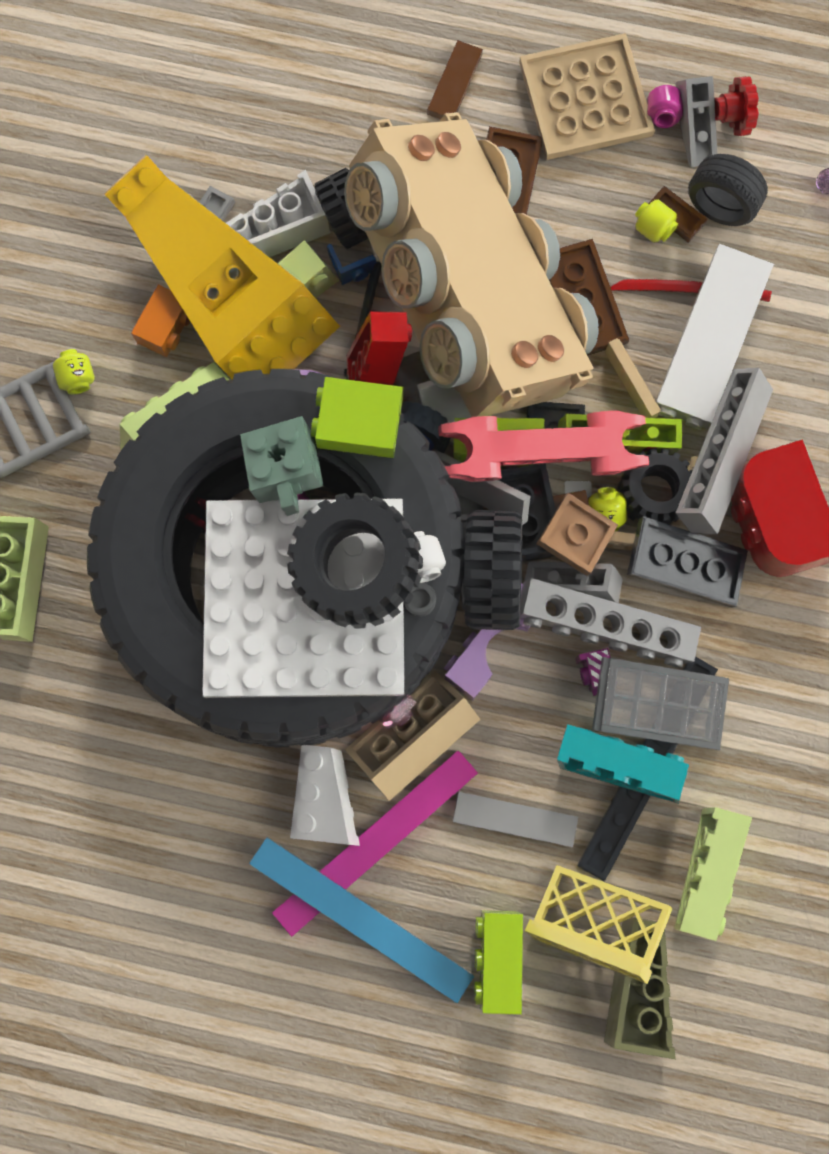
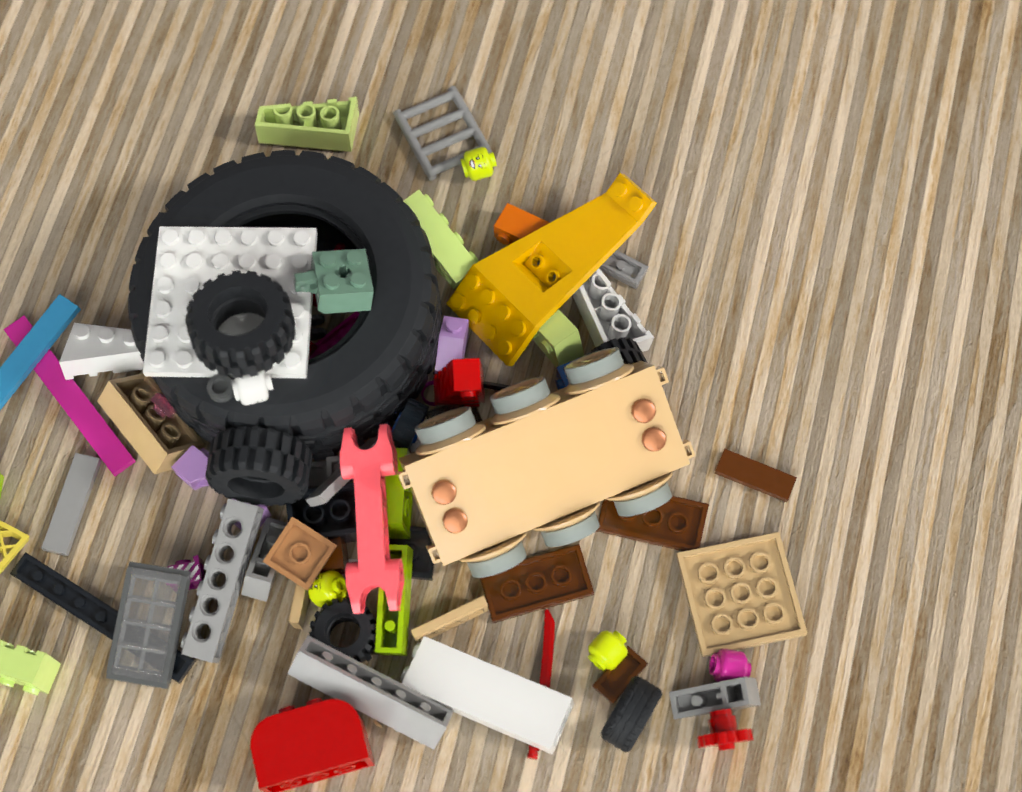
camera: 95 degrees right, 10 degrees down
(357, 417) = (376, 340): lime brick -> none
(622, 764) = (99, 585): teal wedge -> none
(687, 562) = (270, 653): tile -> none

